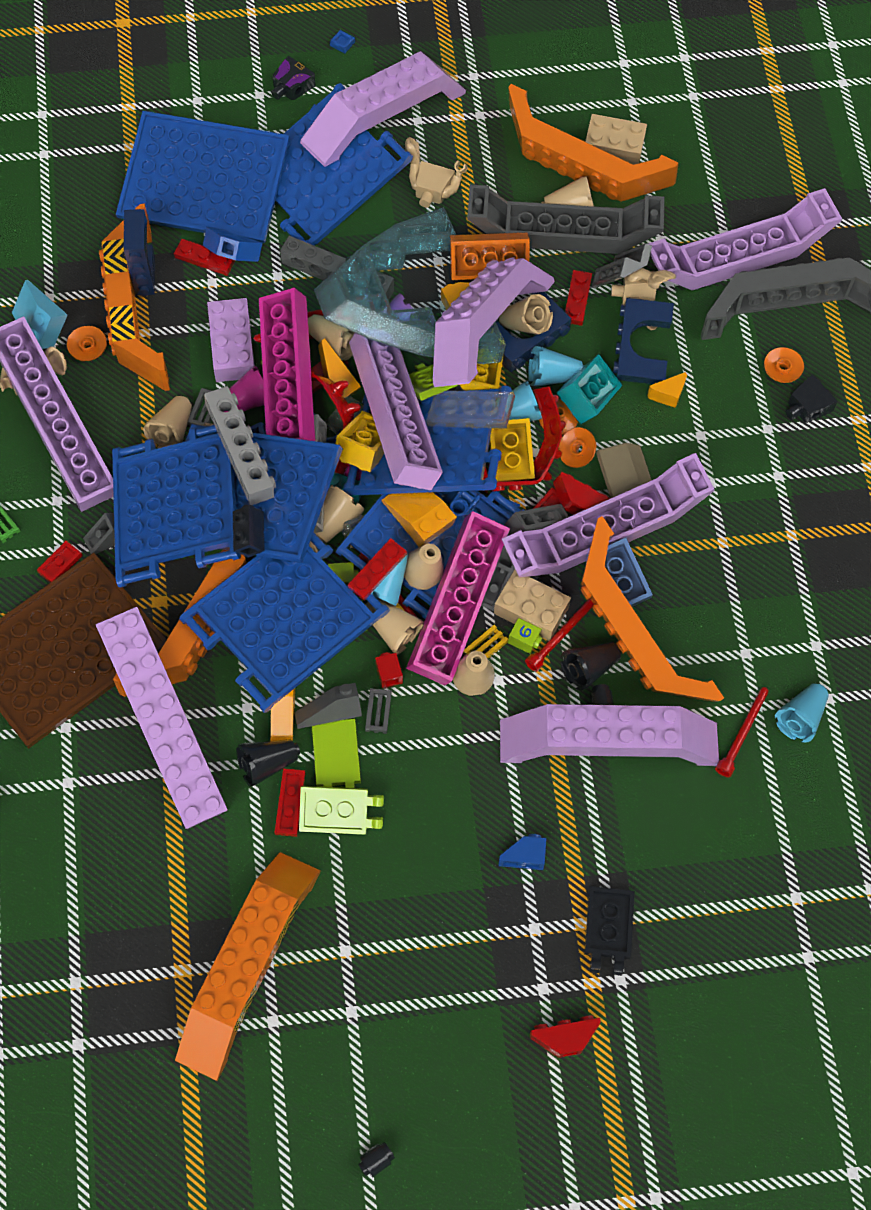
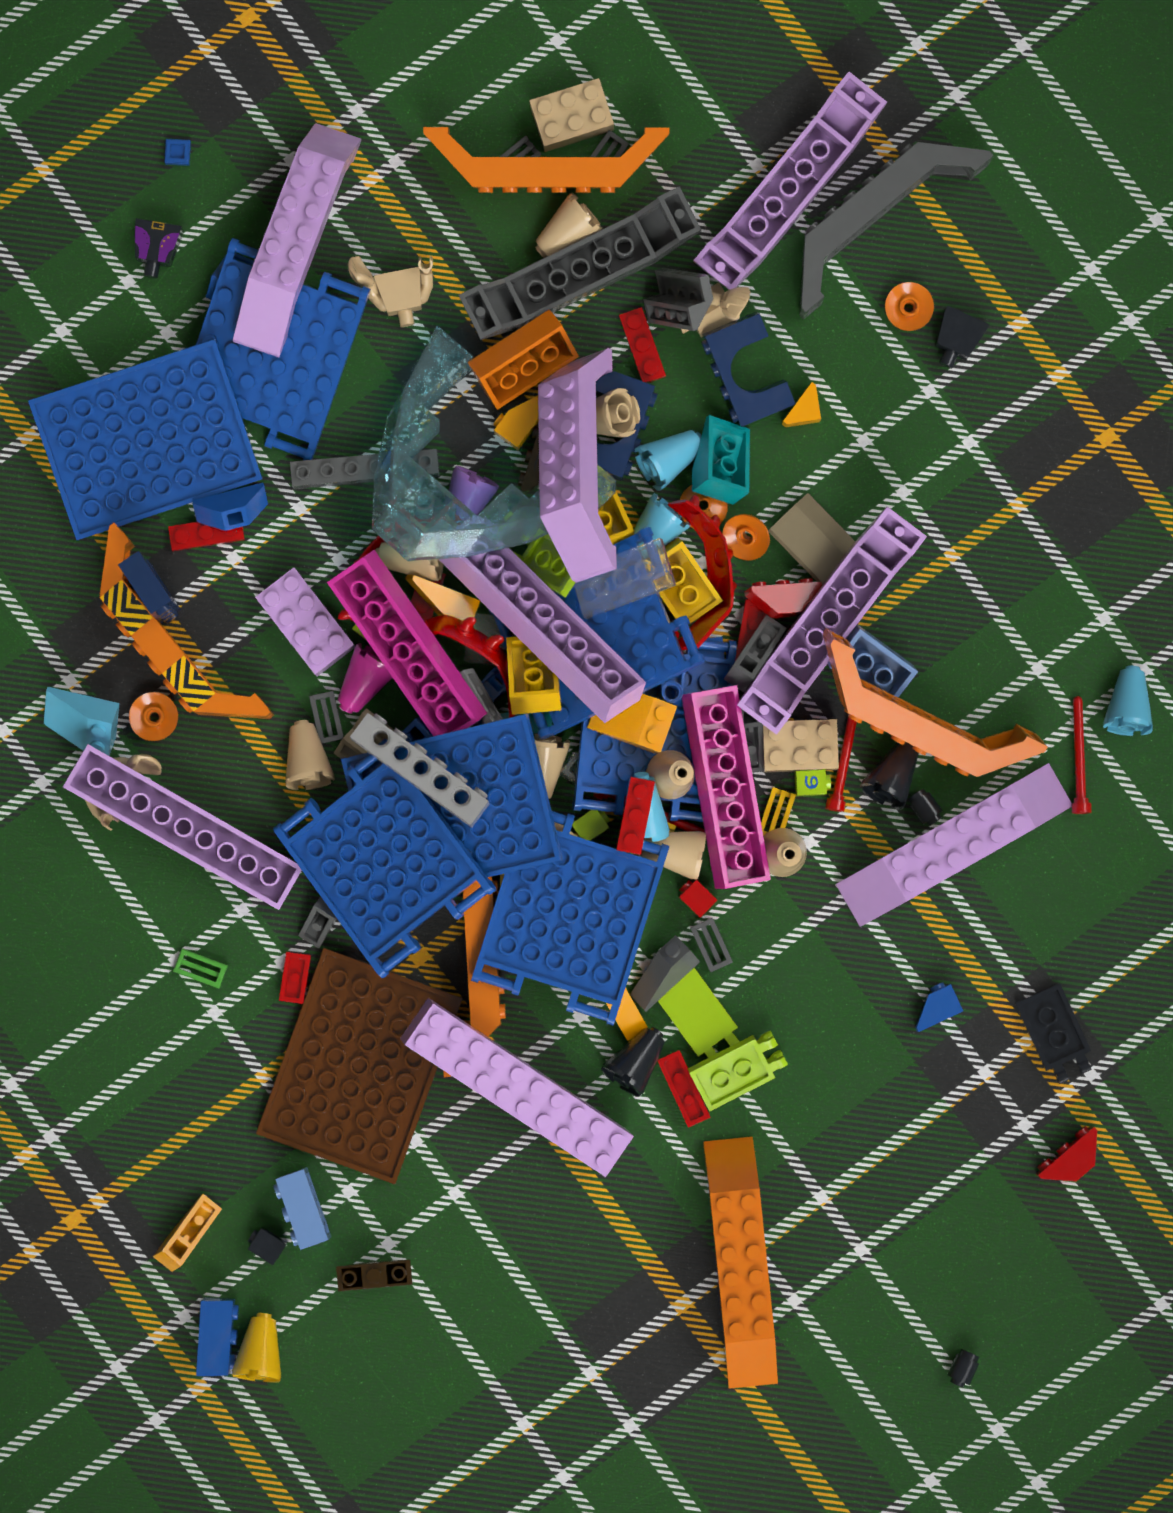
camera: 25 degrees left, 20 degrees up
(248, 531) = (490, 859): black brick -> none

